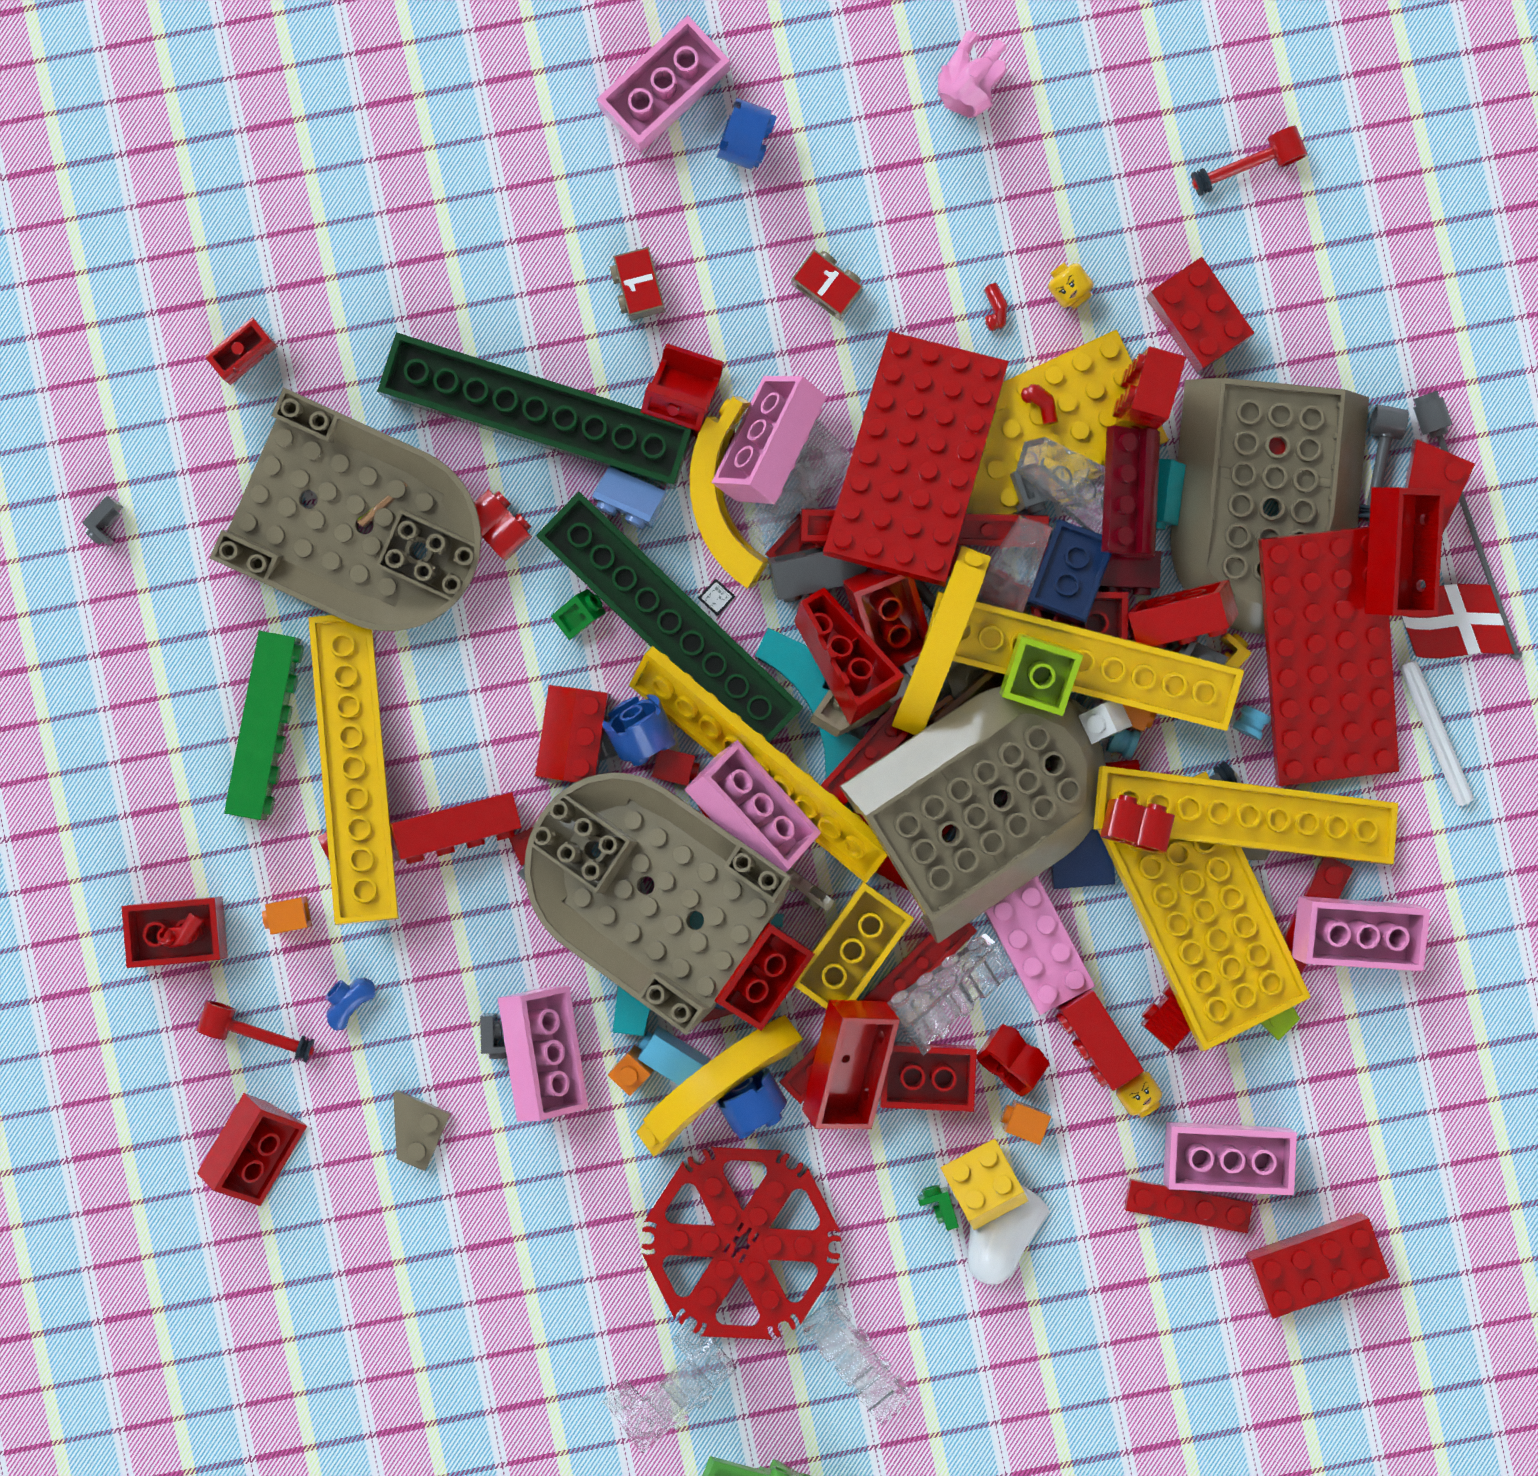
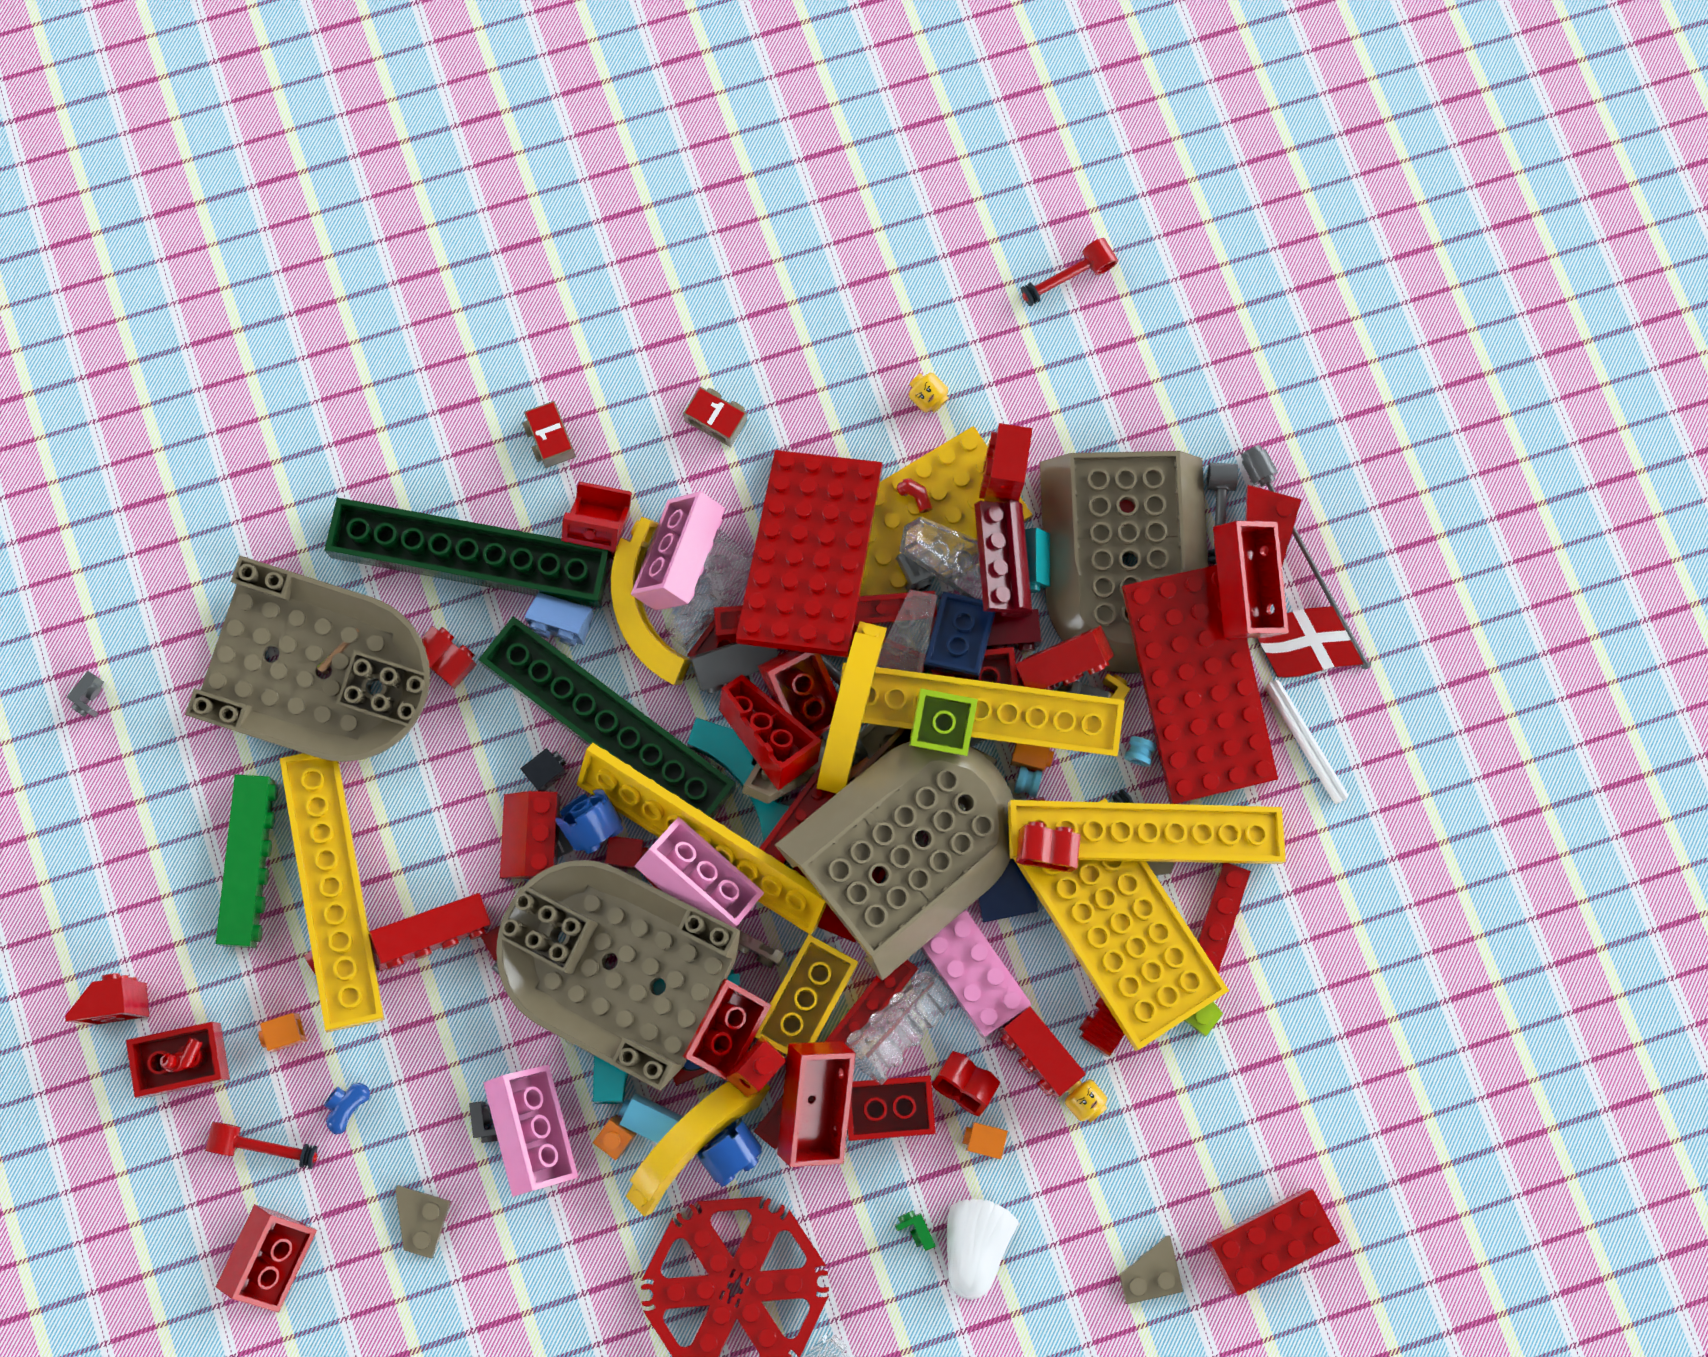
camera: 15 degrees left, 10 degrees down
(112, 862) = (111, 1001): none -> red slope
(241, 351) = (200, 531): red brick -> none
(578, 613) = (524, 726): green bracket -> none
(595, 664) = (544, 769): none -> black brick
(664, 84) = (553, 264): bright pink brick -> none
(716, 597) = (648, 698): sticker -> none
(745, 133) = (628, 297): blue brick -> none
(792, 1020) = (756, 1067): none -> red torso
(968, 85) = (810, 230): bright pink piece -> none
(984, 1184) = (954, 1202): yellow brick -> none
(999, 308) = (868, 417): red arm -> none
(1105, 721) = (1008, 762): white brick -> none
(1184, 1282) = (1152, 1275): none -> dark tan wing
(1188, 1206) = (1146, 1201): red plate -> none
(1199, 315) = (1045, 403): red brick -> none
(1230, 1158) = (1177, 1150): bright pink brick -> none
(1360, 933) = (1265, 926): bright pink brick -> none

